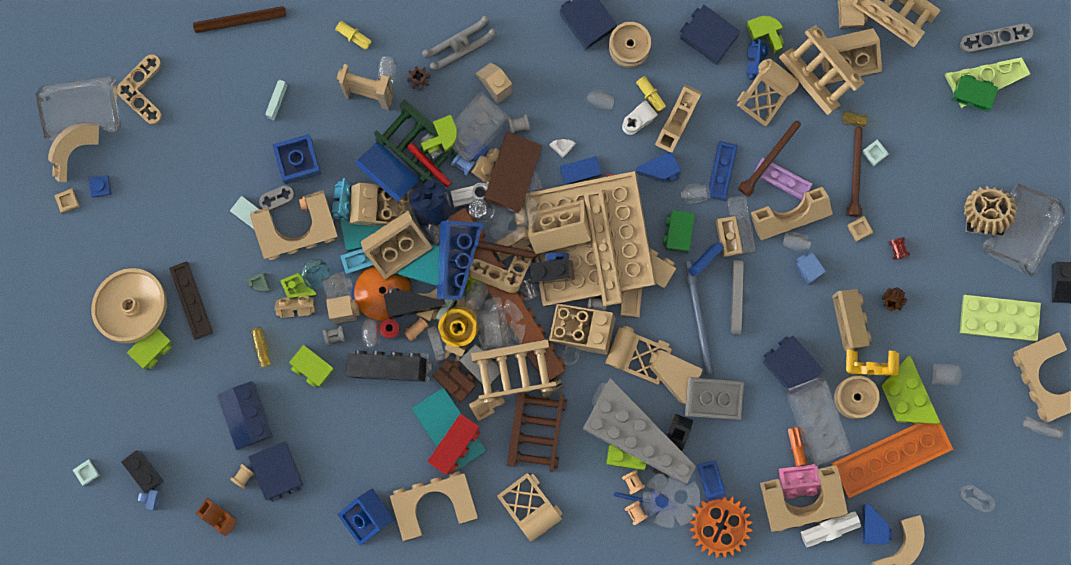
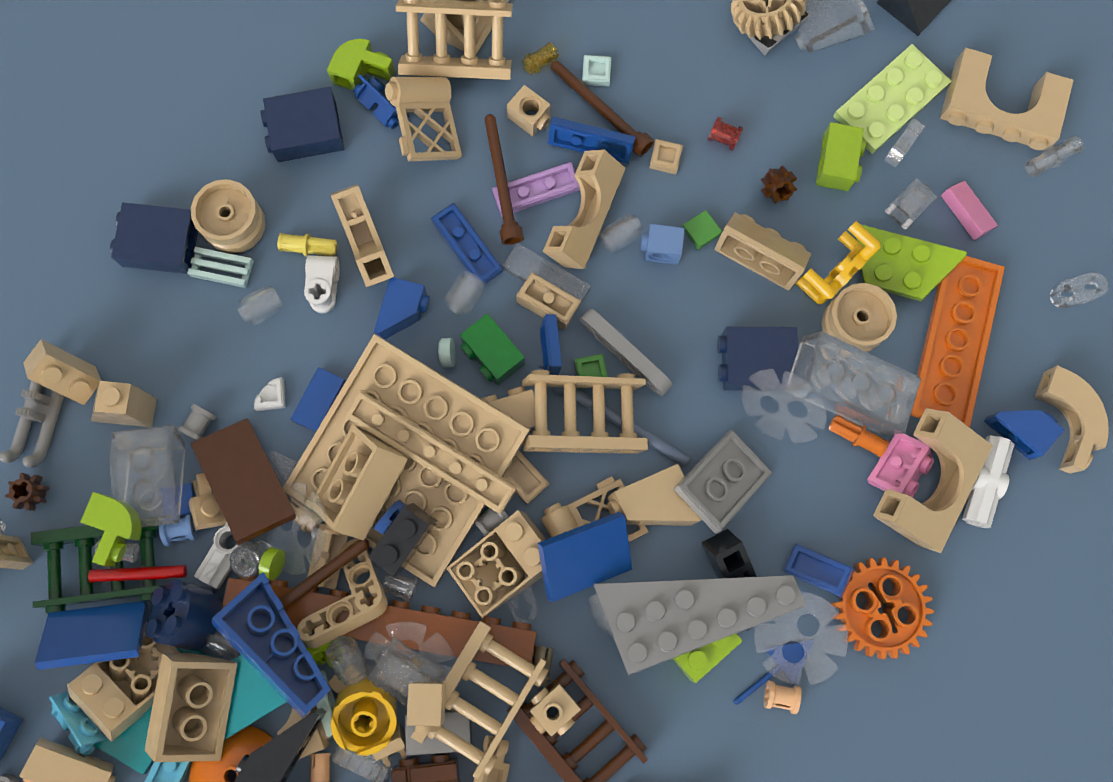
camera: 55 degrees left, 5 degrees down
(487, 42) = (62, 372): none -> tan brick
(489, 221) = (272, 562): none -> lime tile
(491, 347) = (426, 705): none -> tan brick
(542, 414) = (562, 720): none -> tan brick
(594, 49) = (197, 261): none -> light aqua tile
(619, 362) = (585, 556): none -> blue tile
(633, 482) = (742, 666): light nougat bush -> none
(658, 211) = (446, 352): none -> light aqua tile
(668, 308) = (571, 440): none -> tan fence
(713, 288) = (591, 366): none -> bright green tile
(782, 390) = (792, 389): none -> clear piece
(819, 131) = (528, 100): none -> tan brick
(832, 184) = (586, 138): none -> blue tile
(836, 280) = (702, 230): none -> bright green tile
(939, 317) = (840, 157): none -> lime brick
(972, 408) = (969, 210): none -> bright pink slope
(978, 344) = (904, 142): none -> clear beam

